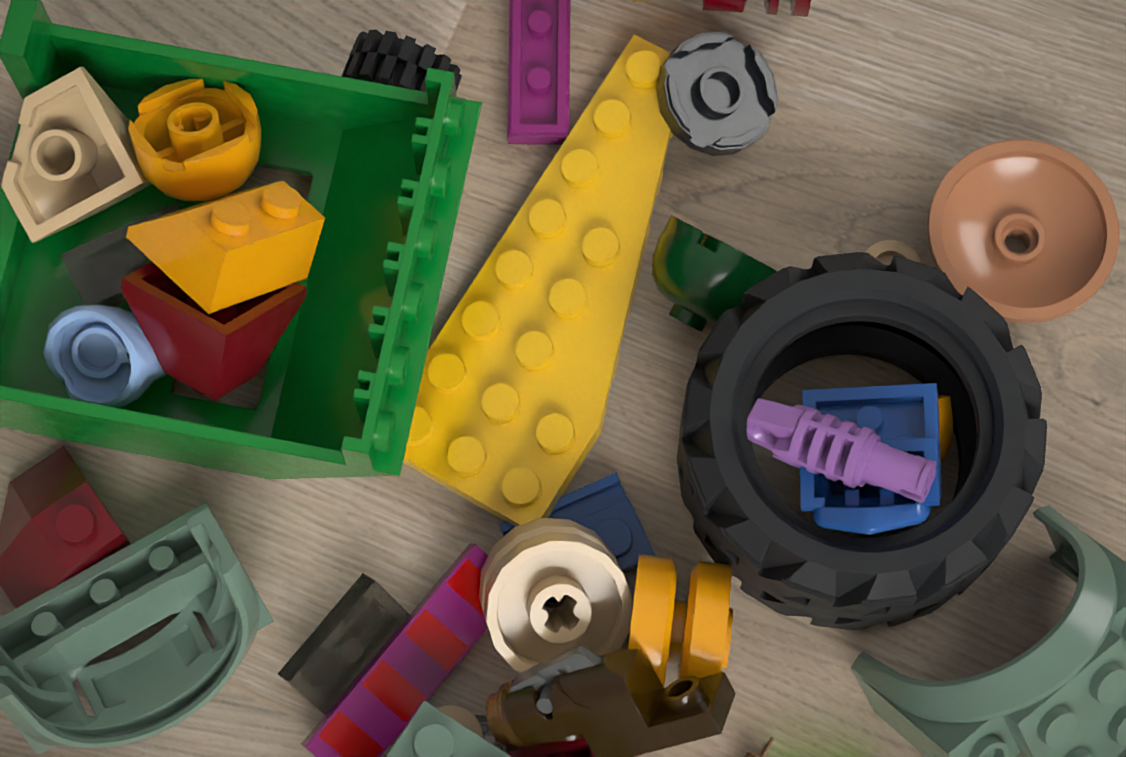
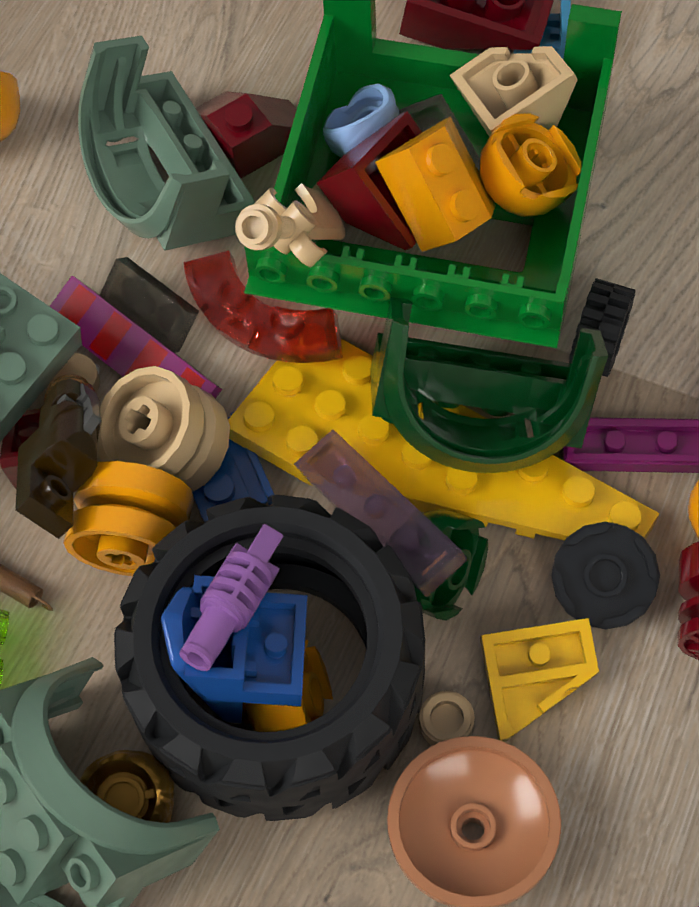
camera: 95 degrees right, 10 degrees down
(344, 390) = (291, 228): none -> tan sword
(366, 519) = (254, 326): none -> clear red tile
(568, 203) = (446, 375): none -> dark green piece
(669, 325) = (365, 494): none -> tile
(830, 173) = (535, 670): none -> yellow wing
(1009, 610) = (132, 784): none -> pearl gold hair

